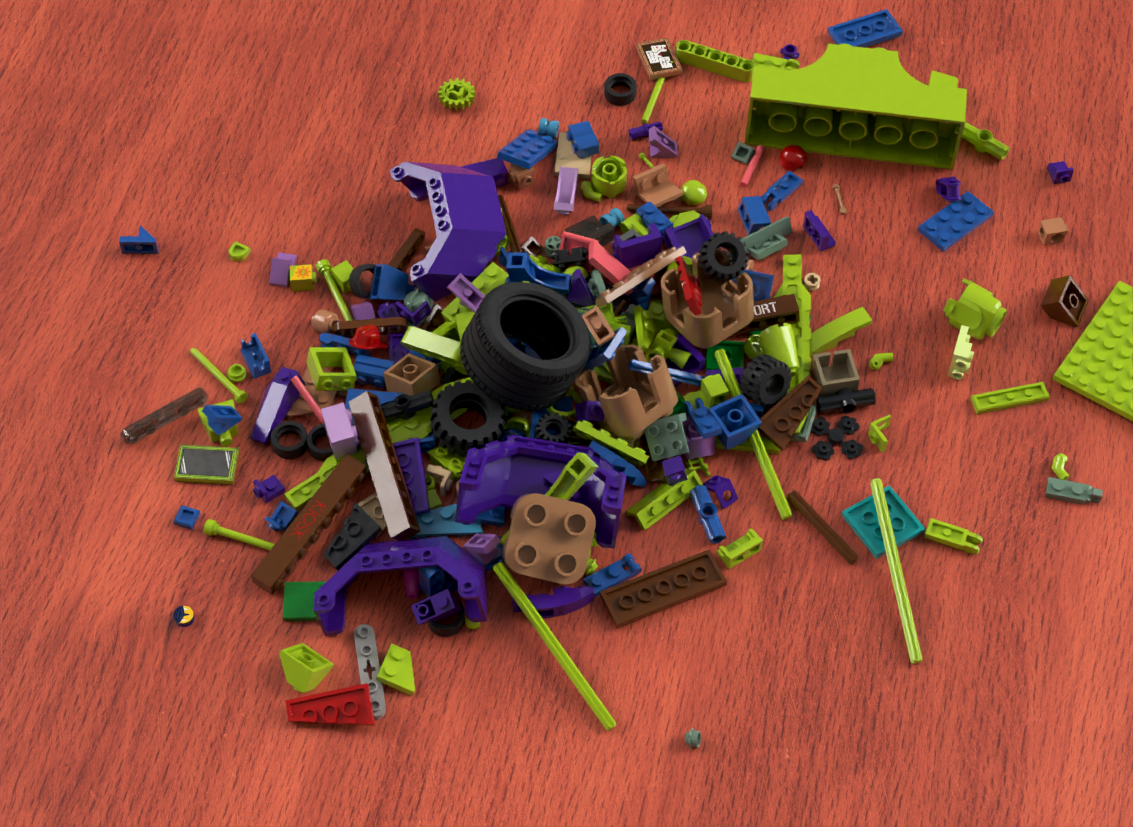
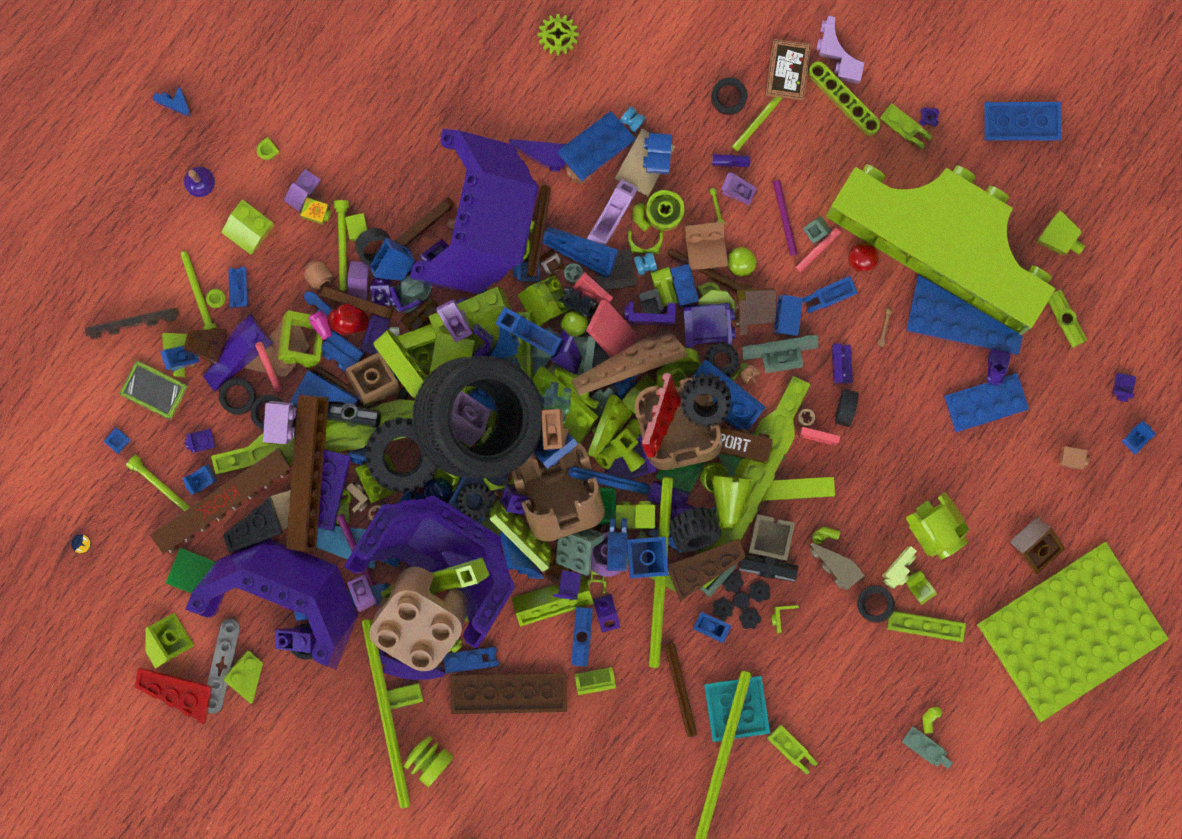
camera: 20 degrees right, 30 degrees up
(185, 293) = (199, 182): none -> dark purple piece
(242, 403) = (206, 343): none -> reddish brown wing
(244, 308) = (247, 227): none -> lime slope
(343, 346) = (320, 324): none -> dark pink cone
(450, 512) = (352, 543): none -> magenta bar
(553, 222) = (586, 252): none -> blue wing
(566, 626) = (405, 696): none -> lime plate
(596, 213) = (636, 250): none -> lime cap
(616, 669) = (428, 761): none -> lime wheel
(685, 31) = (829, 47): none -> lavender arch
(712, 154) = (785, 218): none -> magenta bar
(724, 214) = (754, 308): none -> reddish brown bracket
(826, 460) = (712, 627): none -> blue slope
(831, 283) = (819, 436): none -> coral tile
(843, 257) = (846, 408): none -> black tyre
(886, 175) = (946, 317): none -> blue wing
(905, 376) = (842, 568): none -> dark tan slope
(956, 404) = (876, 618): none -> black tyre
(986, 368) = (920, 587): none -> lime bracket
(1095, 197) = (1138, 437): none -> blue bracket

